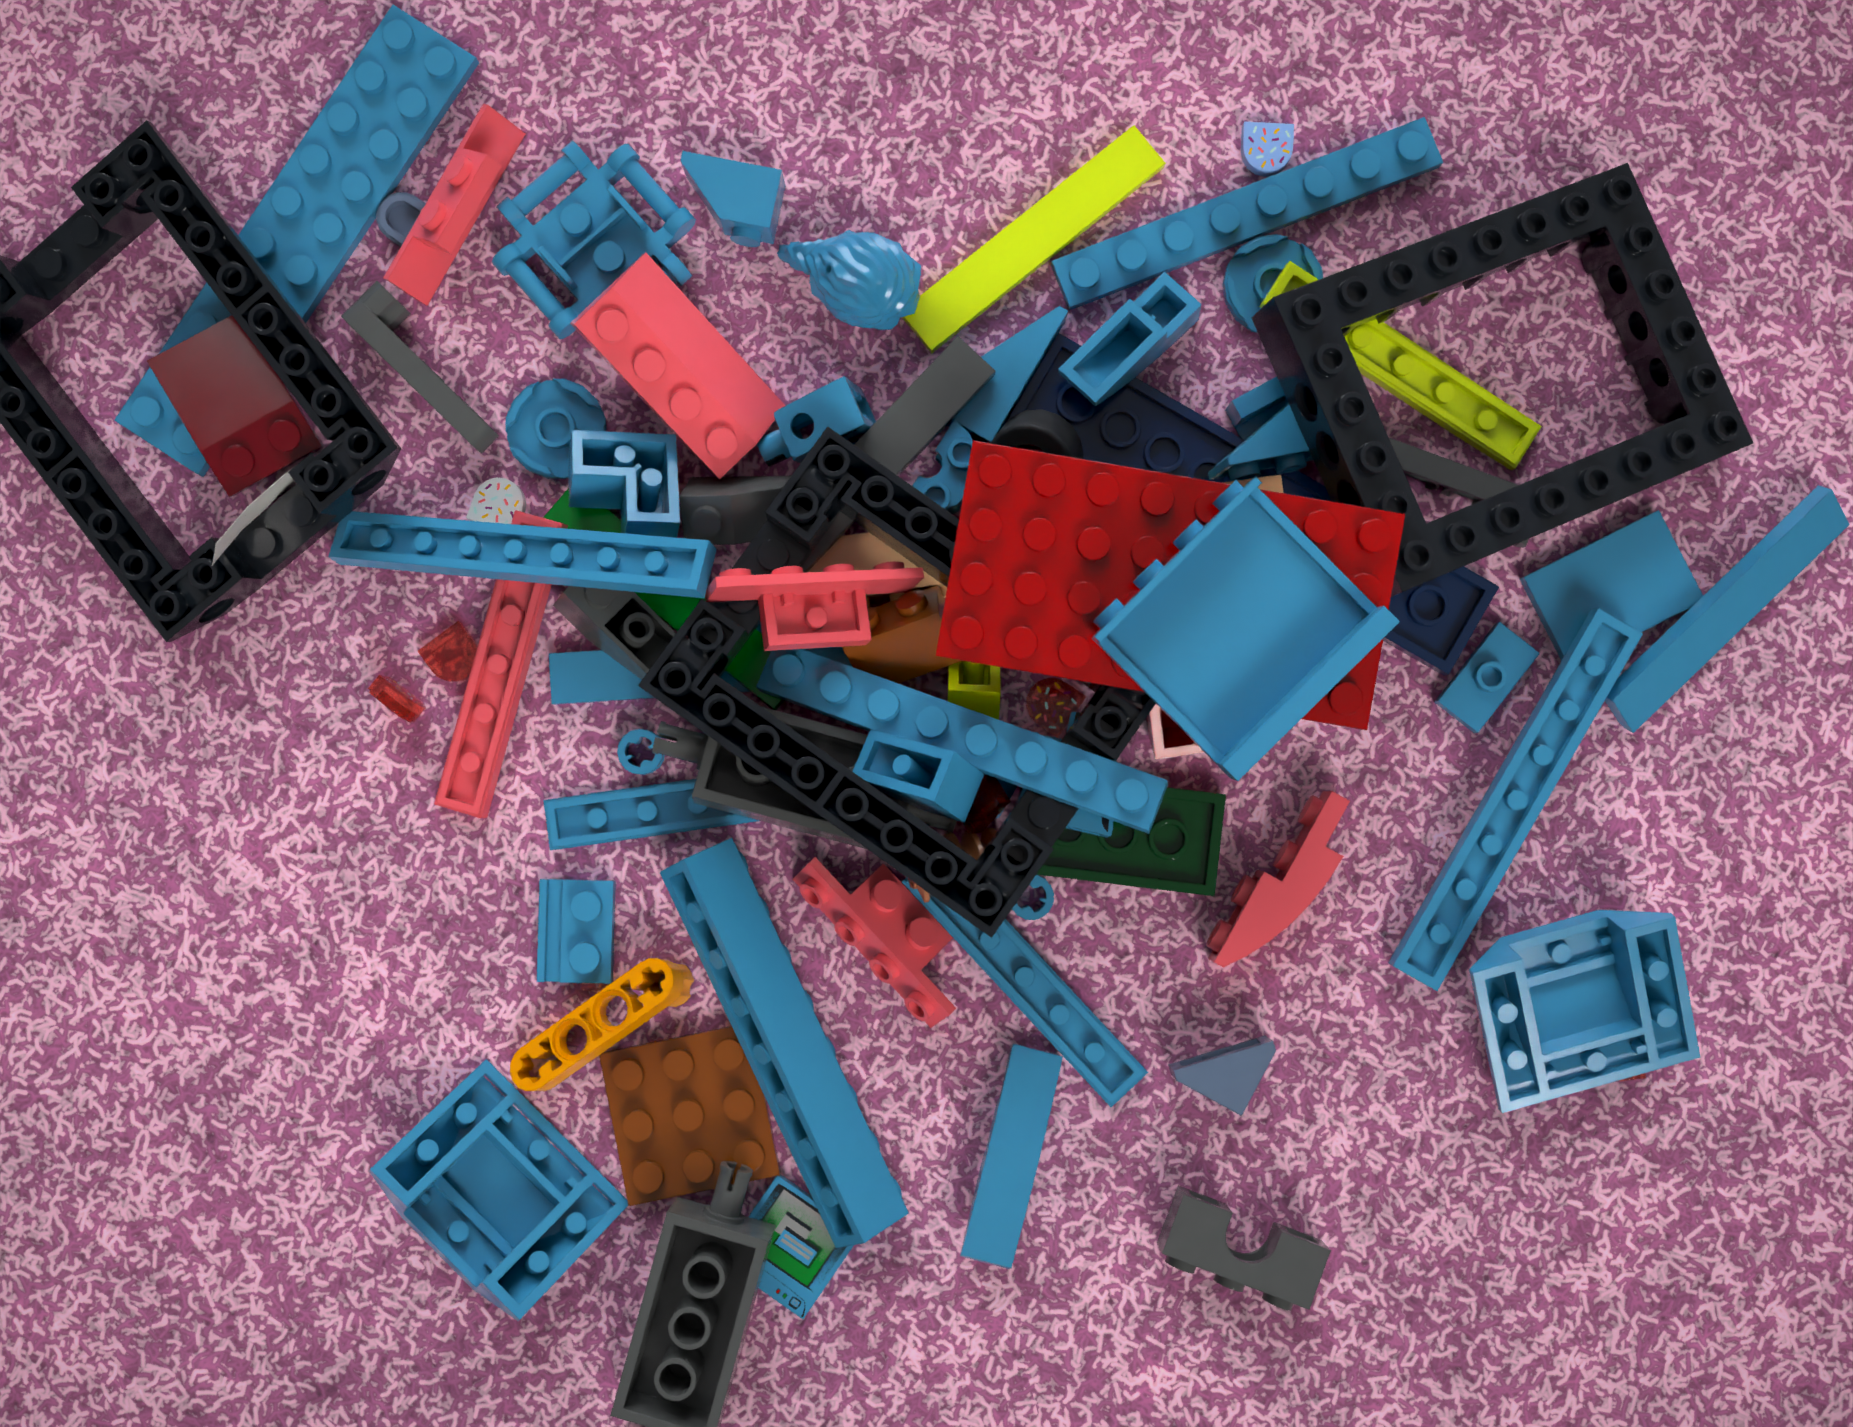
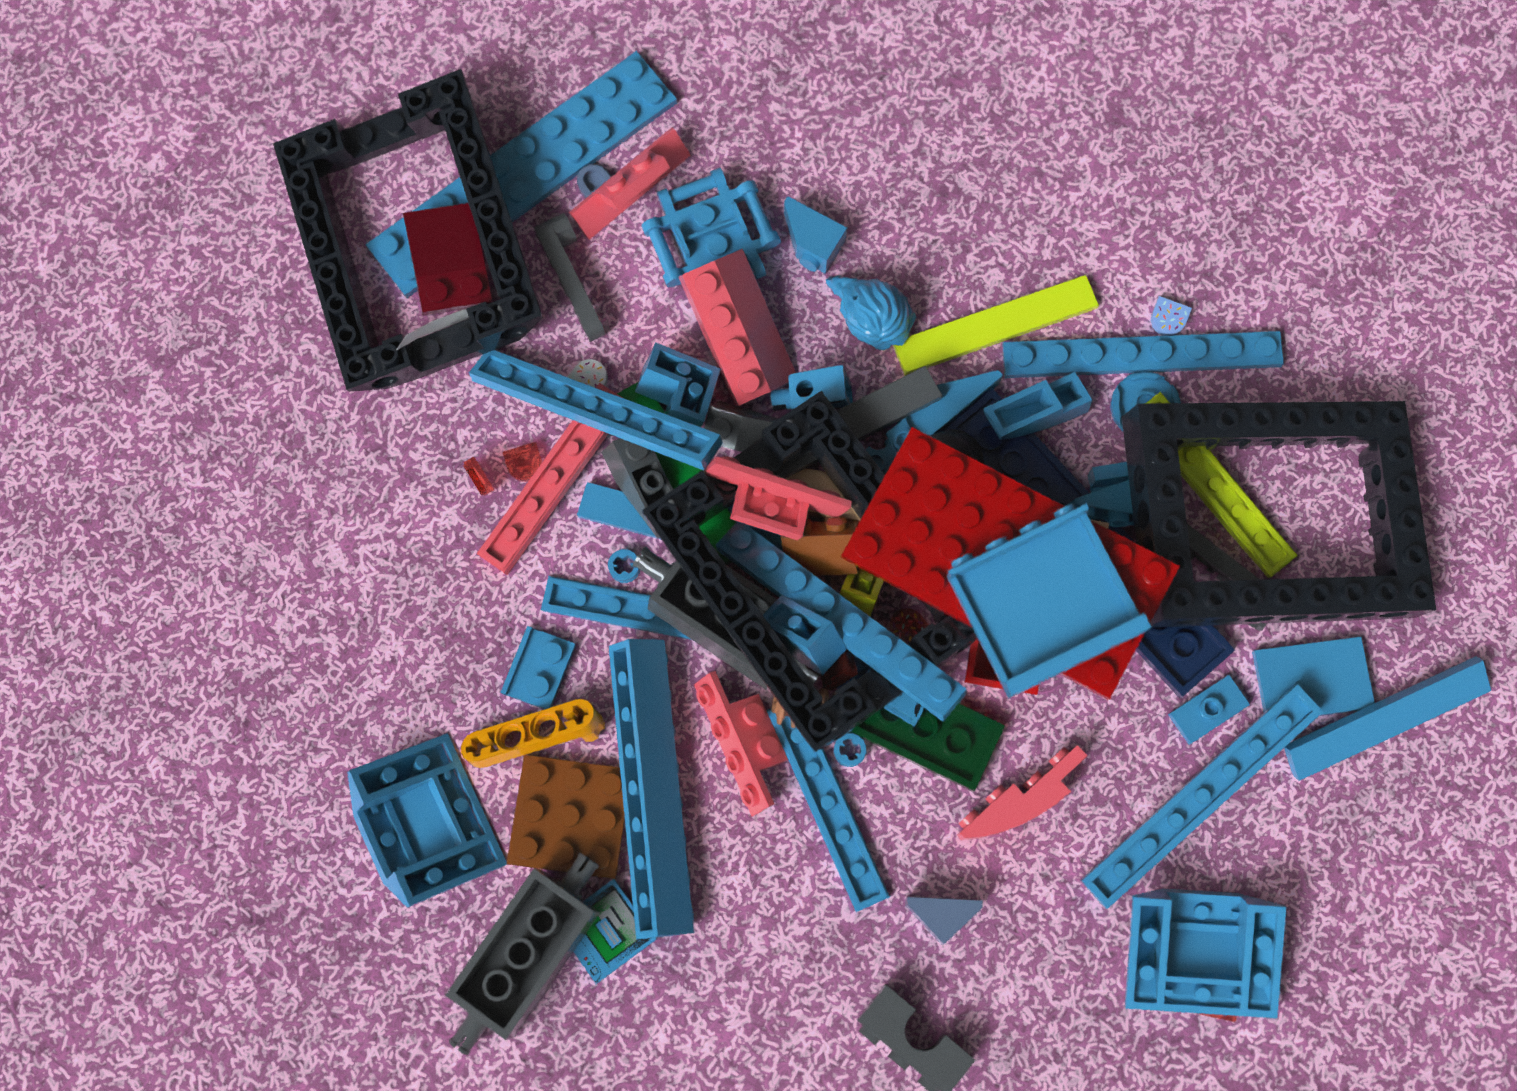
camera: 20 degrees right, 10 degrees down
(530, 412) = (647, 324): dark azure tile -> none
(1011, 1156) = (776, 920): dark azure slope -> none

